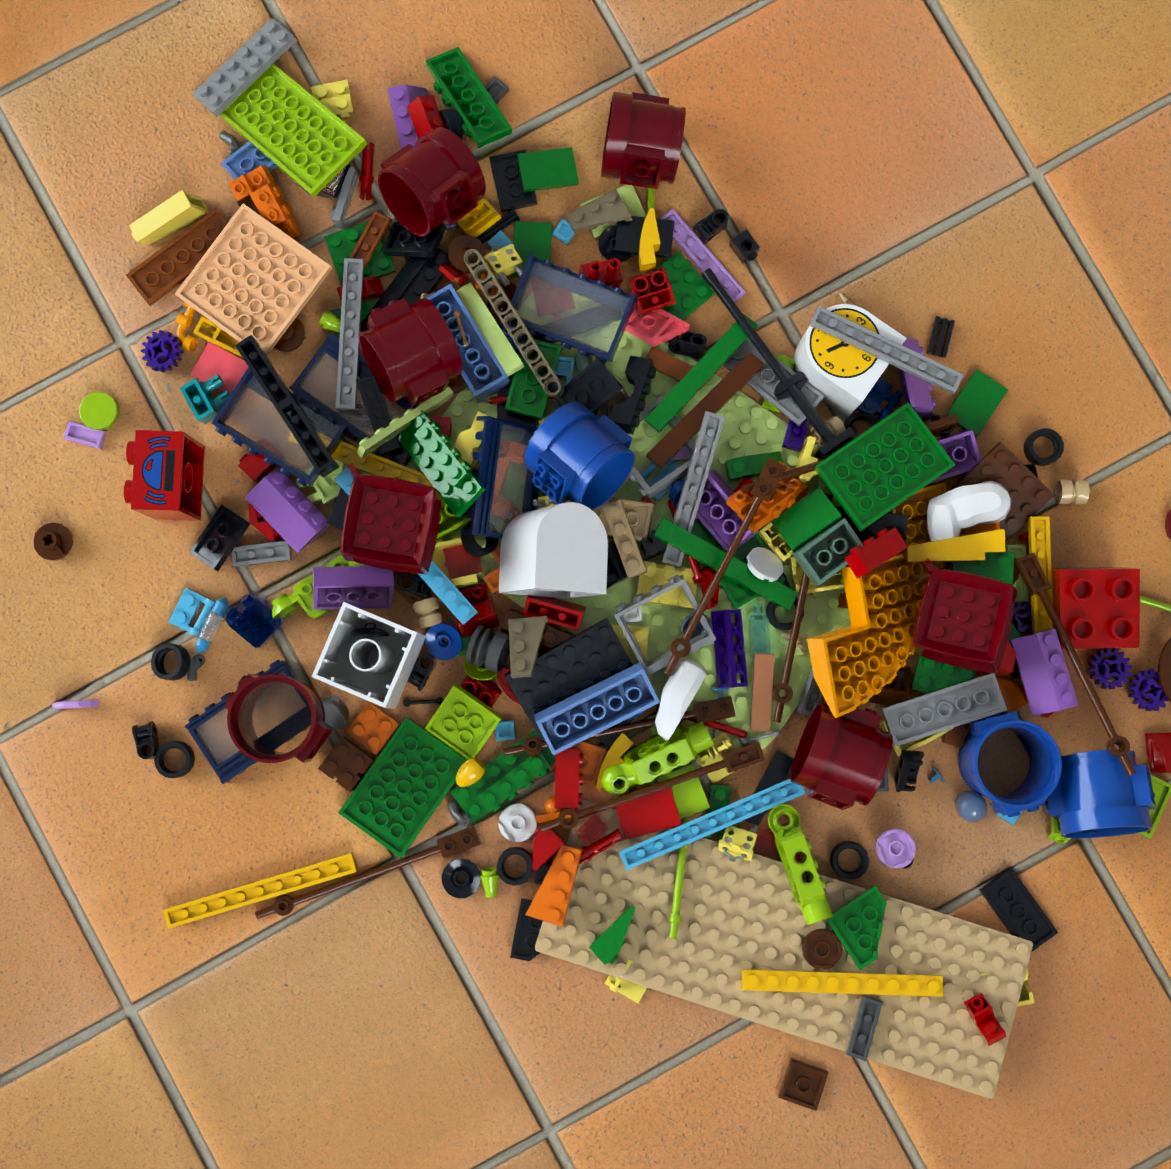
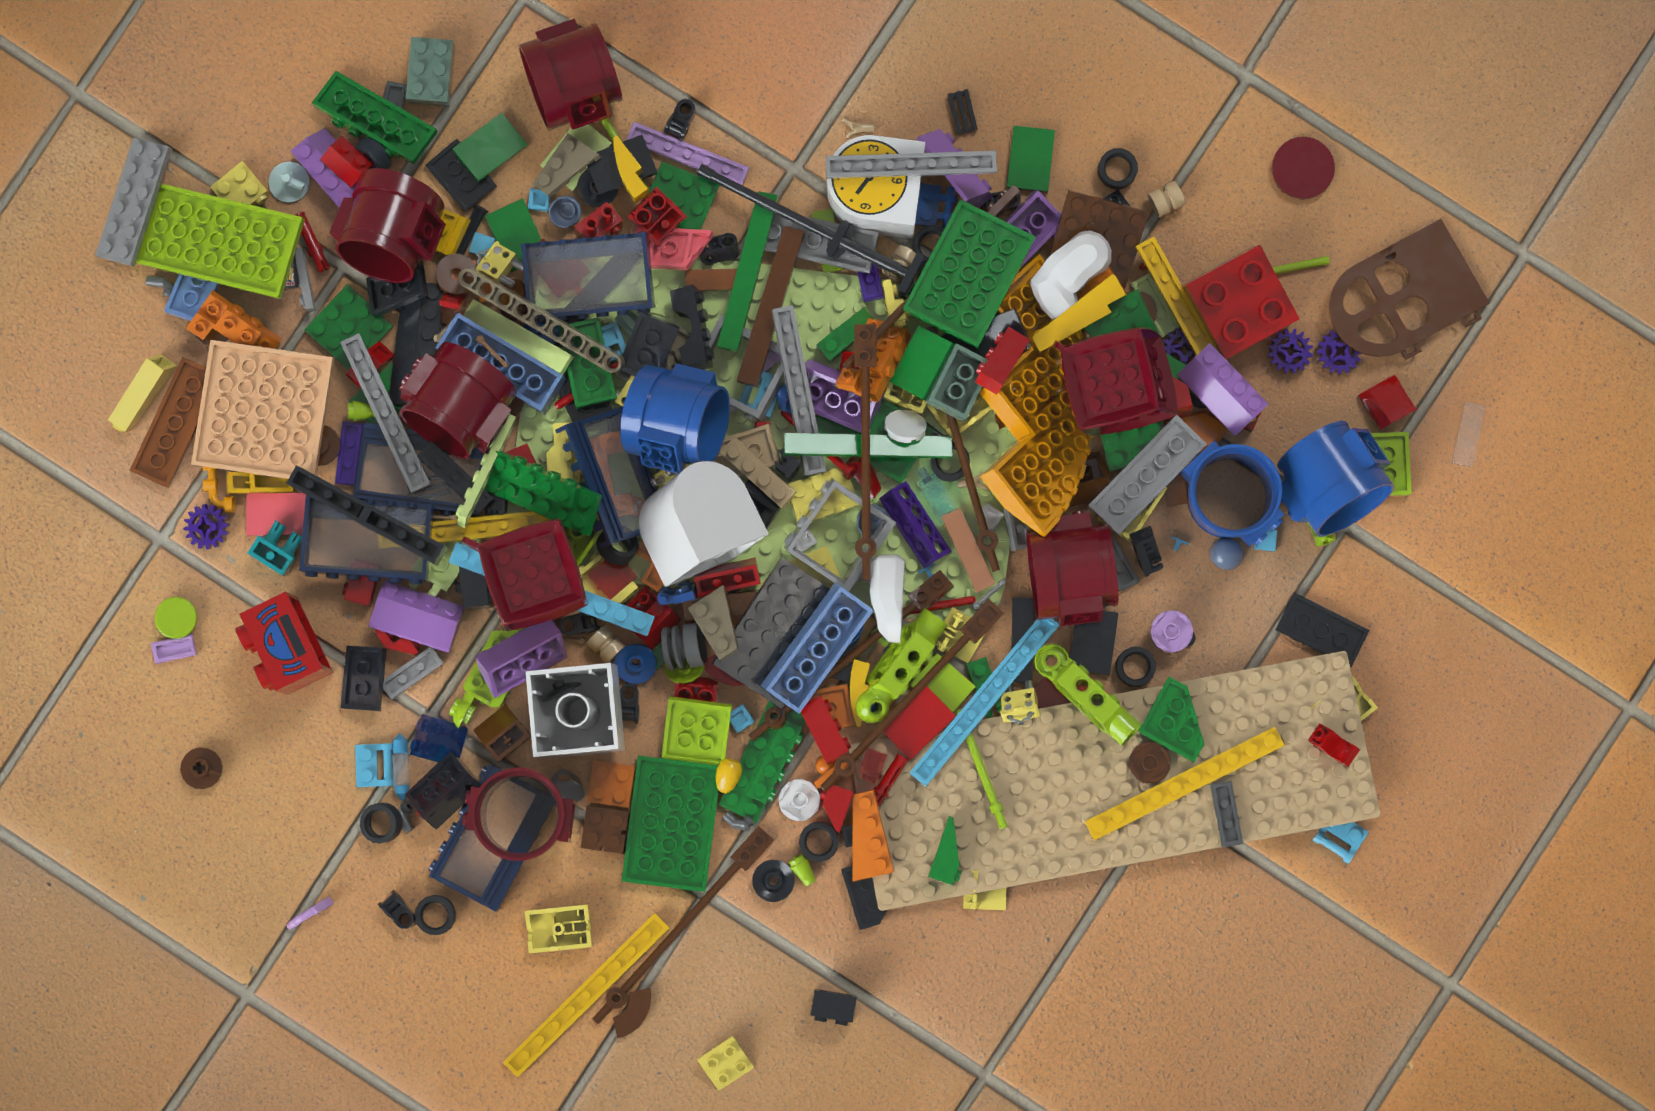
camera: 25 degrees left, 0 degrees up
(229, 661) = (442, 790): none -> black piece
(267, 825) = (559, 928): none -> light yellow piece
(291, 927) = (634, 1013): none -> reddish brown tile
(305, 352) = (349, 453): none -> dark purple tile
(305, 640) = (502, 733): none -> reddish brown slope
(342, 1007) = (725, 1063): none -> light yellow hinge
(371, 238) = (353, 307): dark orange tile -> none
(375, 116) = (289, 182): none -> light aqua shield
(407, 702) = (631, 741): black hinge -> none
(454, 1011) = (833, 1006): none -> black brick
(511, 605) = (683, 592): none -> blue plate
(532, 85) = (430, 71): none -> sand green brick
(580, 250) = (565, 211): none -> sand blue hair
(745, 239) = (720, 115): black brick -> none
(797, 674) = (992, 516): none -> white tile
(803, 1084) = (1202, 902): reddish brown tile -> none
(824, 824) = (1094, 644): none -> black tile
(955, 1096) = (1349, 833): none -> medium azure plate
(1038, 584) = (1175, 308): reddish brown bar -> none

